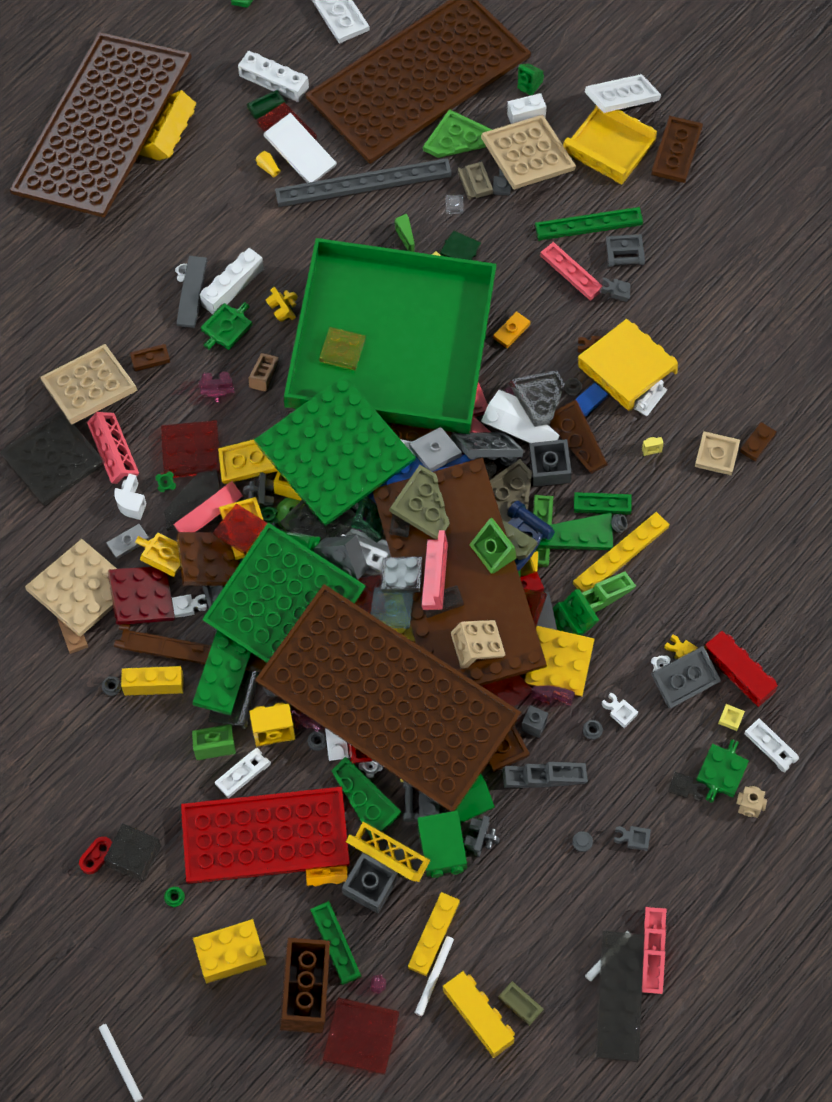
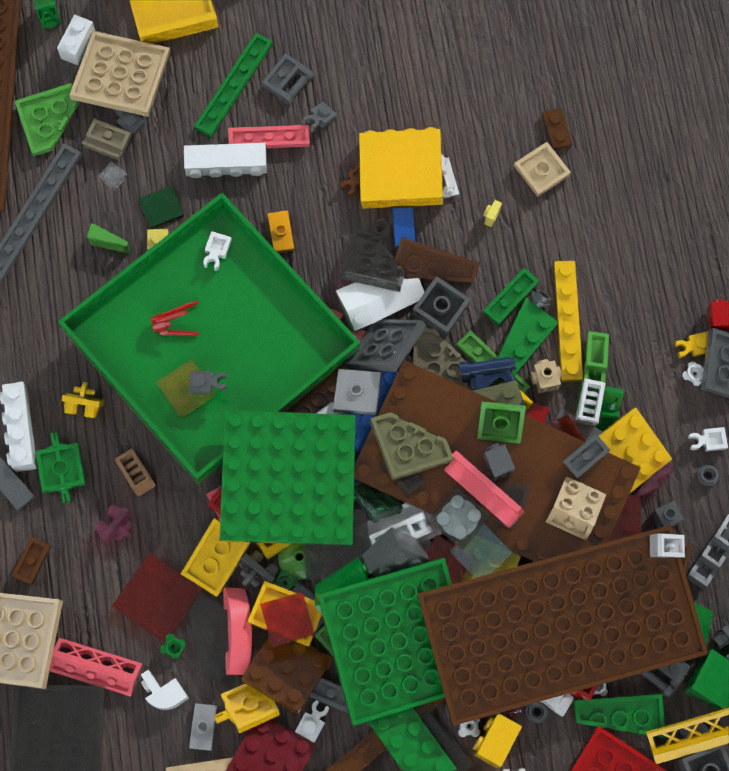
camera: 55 degrees left, 10 degrees up
(268, 698) = (473, 730): none -> white plate
(354, 351) = (203, 382): none -> dark grey plate
(373, 300) = (162, 321): none -> red plant
(457, 292) = (217, 247): none -> white plate
(460, 564) = (498, 462): none -> dark grey brick
(502, 717) = (667, 545): none -> white slope
(519, 620) = (586, 456): none -> dark grey plate
(529, 258) = (225, 160): none -> white brick
(564, 566) = (546, 376): none -> tan brick
(565, 598) = (595, 412): none -> white slope

